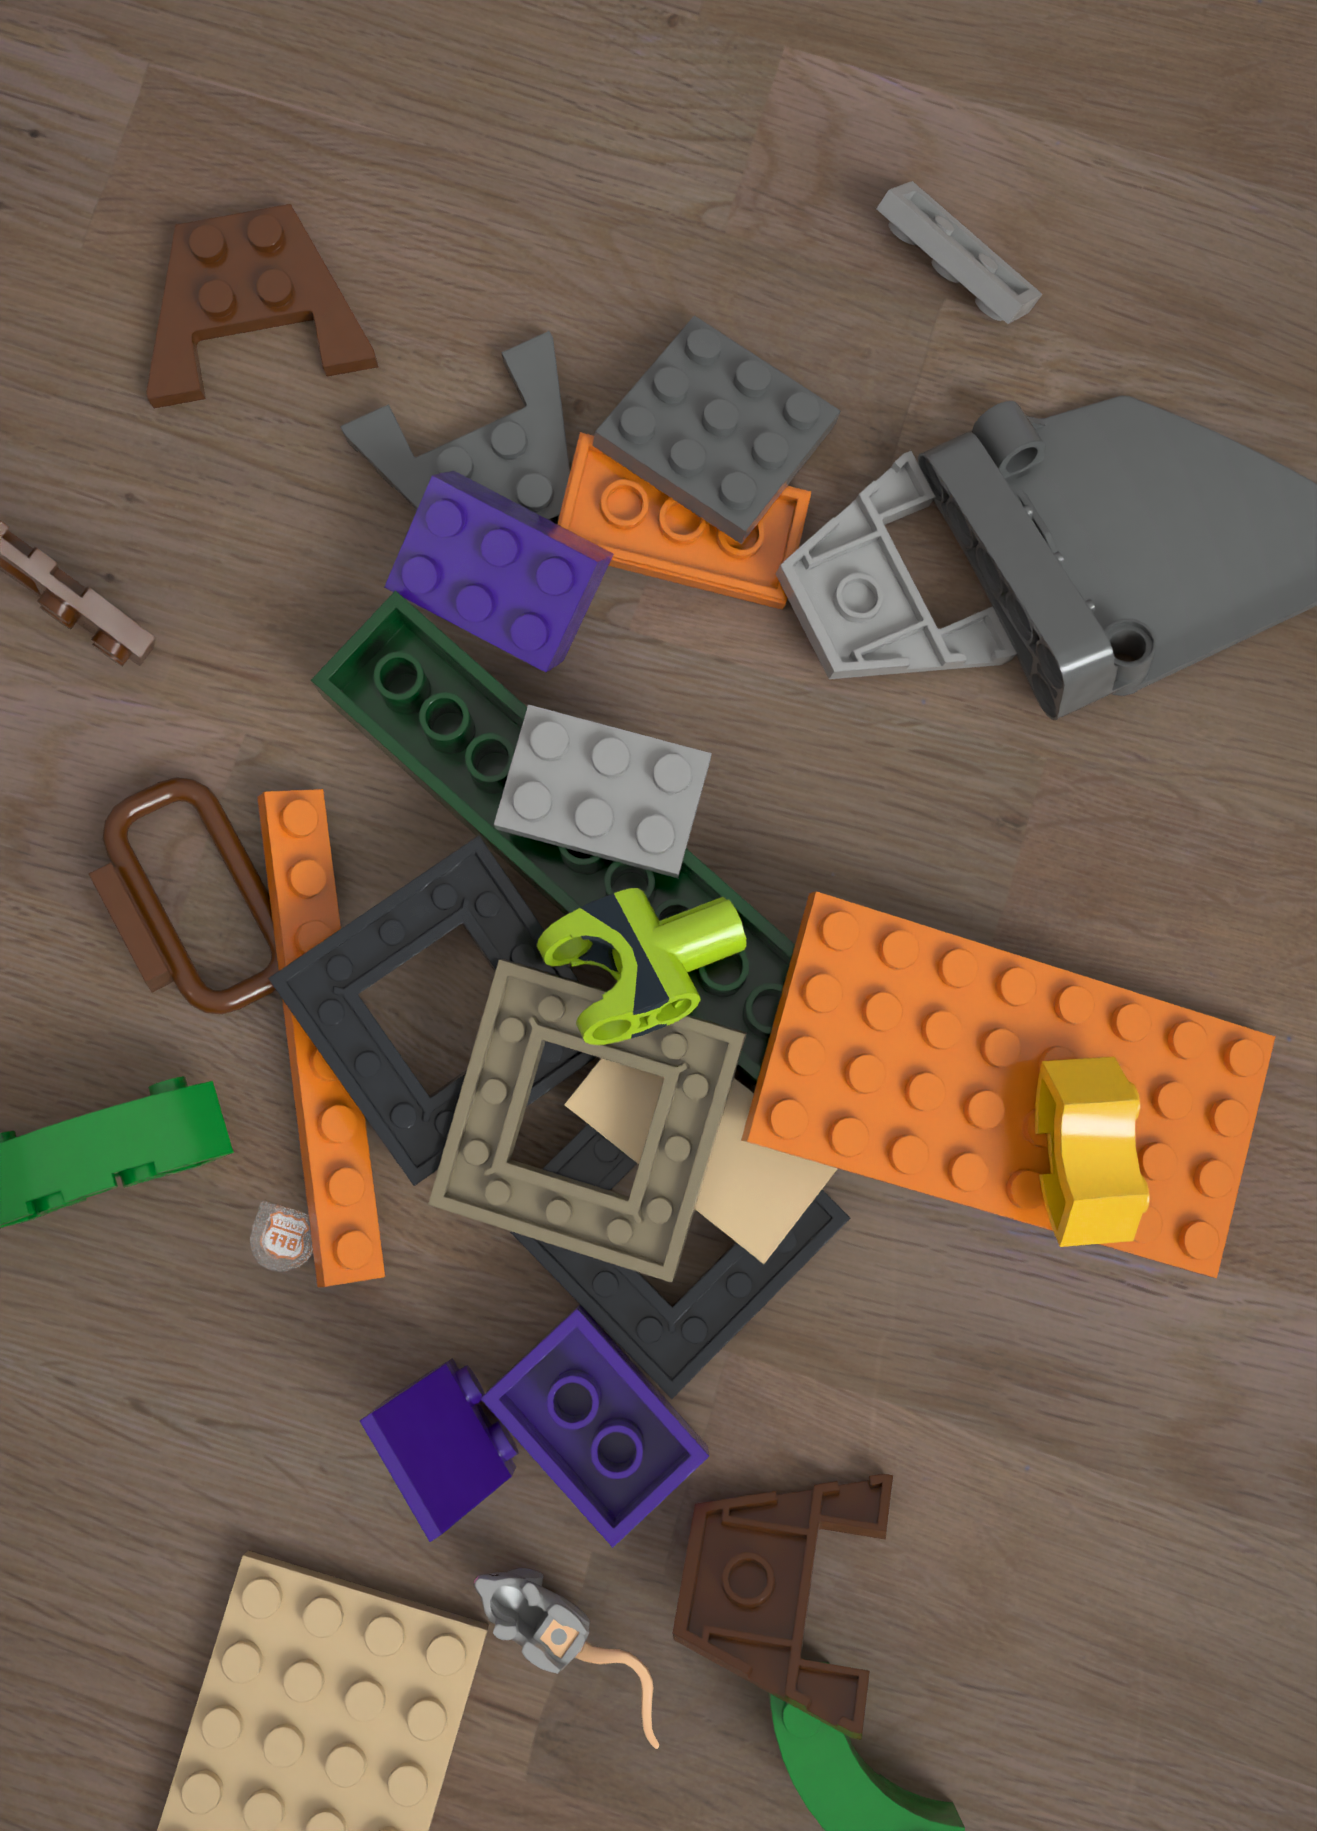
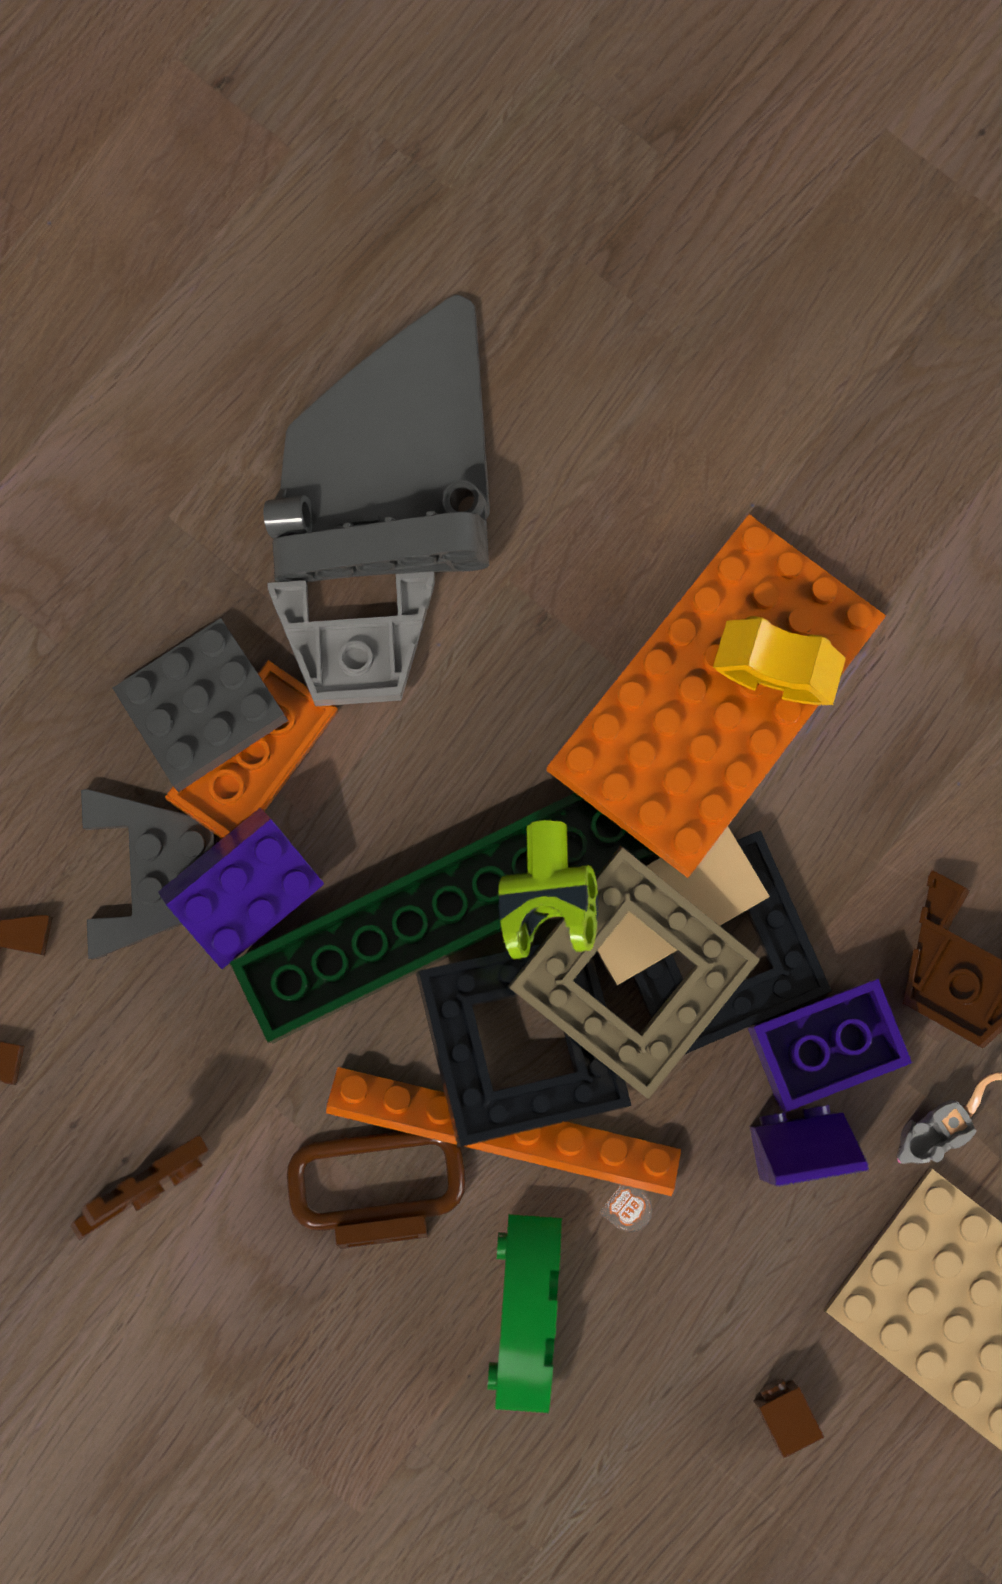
camera: 70 degrees left, 0 degrees up
(83, 1557) = (788, 1417): none -> reddish brown brick
(602, 791) = (424, 876): light grey plate -> none
(958, 253) = (144, 495): light grey plate -> none

